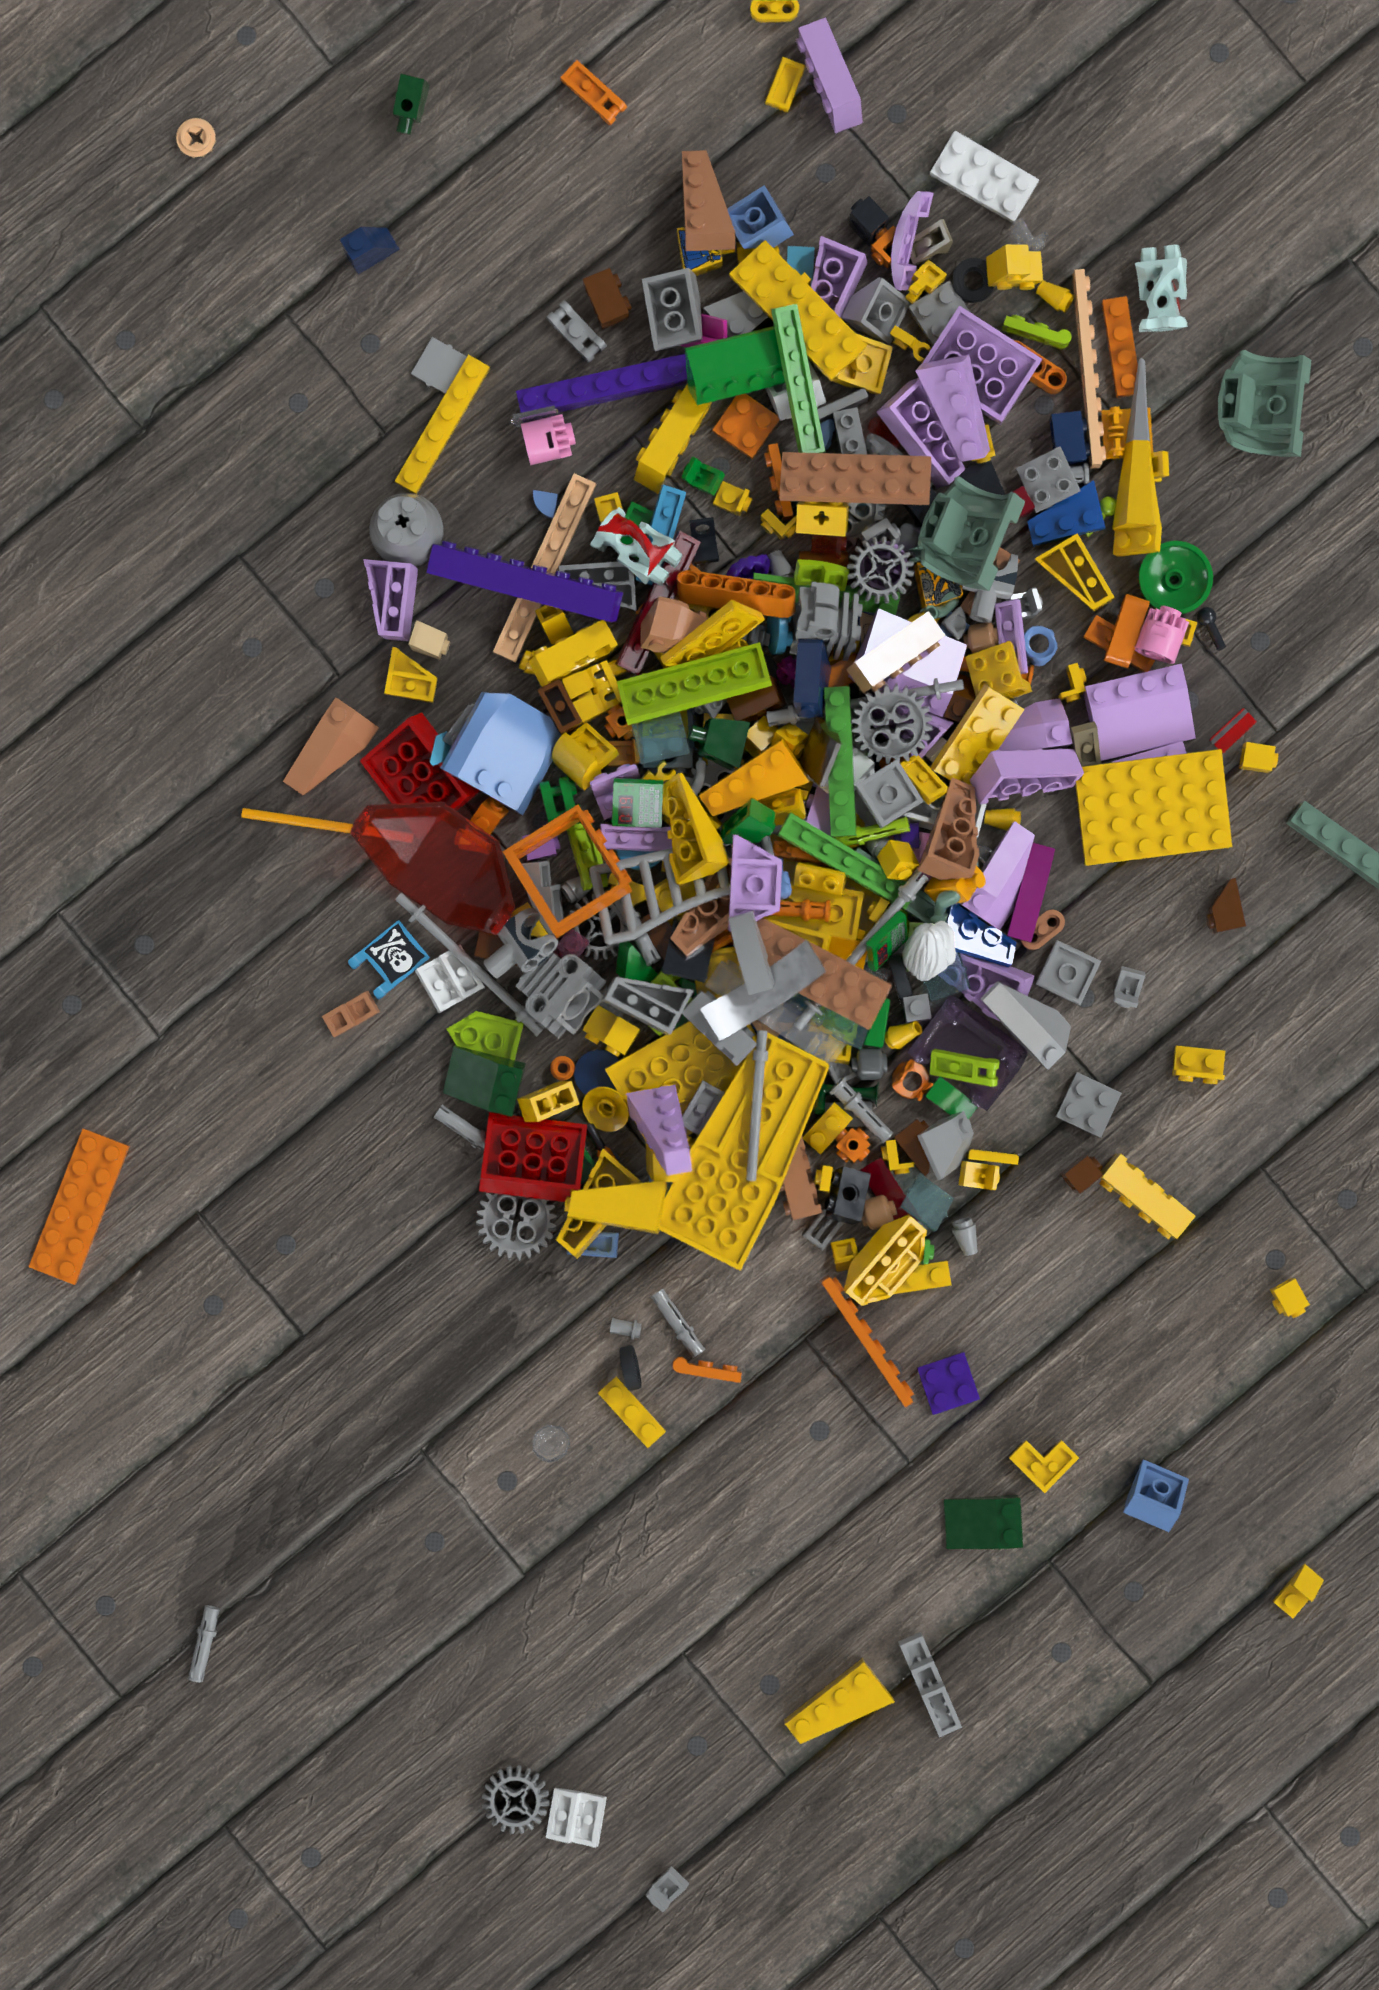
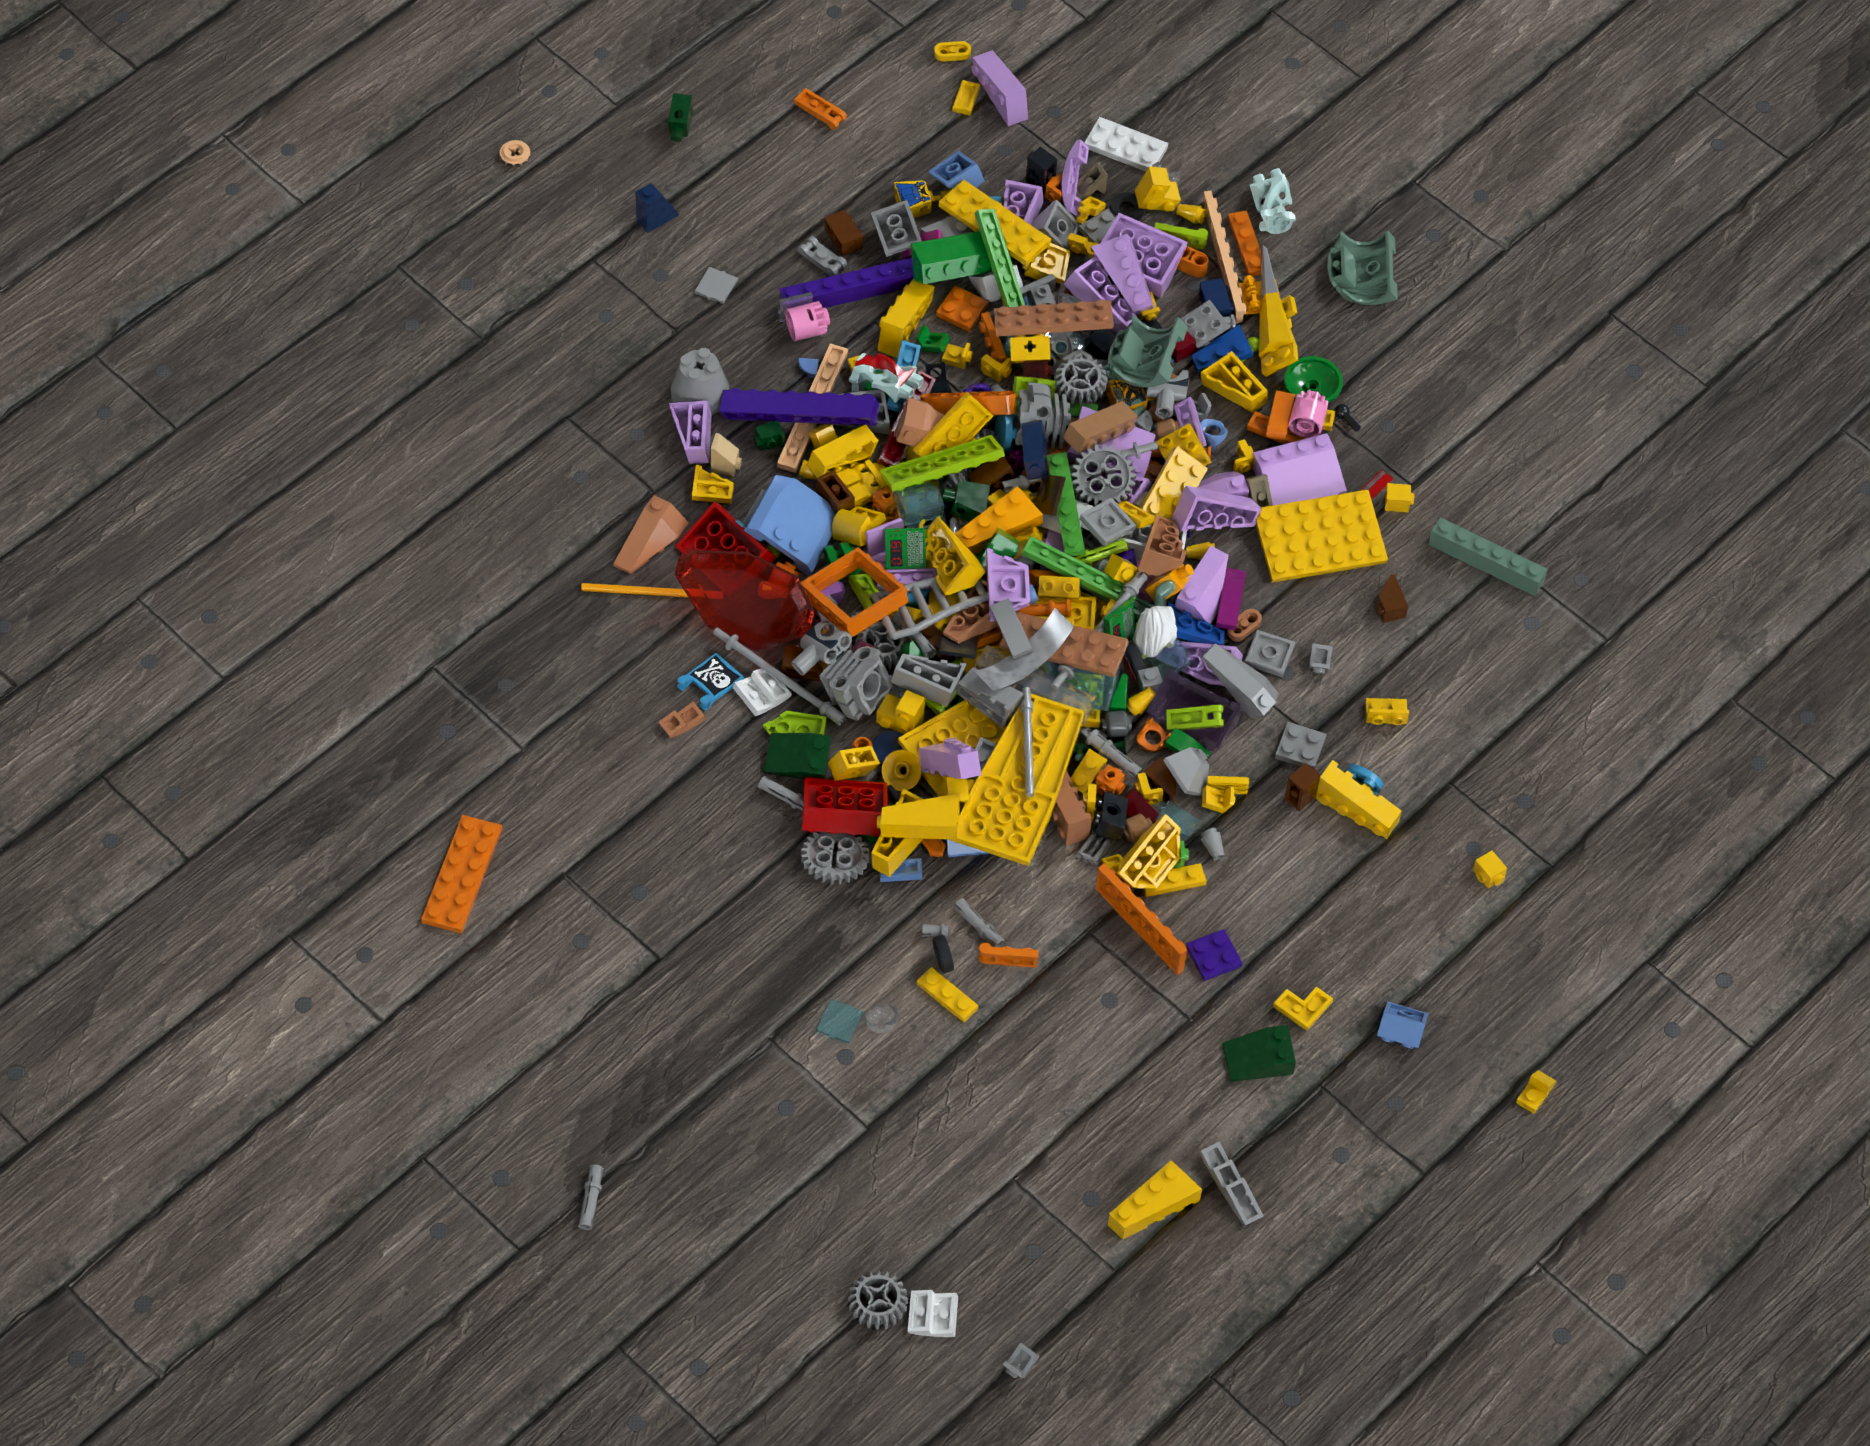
camera: 10 degrees left, 30 degrees down
(442, 424) = (726, 314): yellow plate -> none
(486, 609) = (769, 436): none -> dark green brick
(504, 1435) = (840, 1021): none -> clear light blue piece
(705, 211) = (914, 165): nougat wedge -> none
(1162, 1171) = (1365, 776): none -> dark azure tile

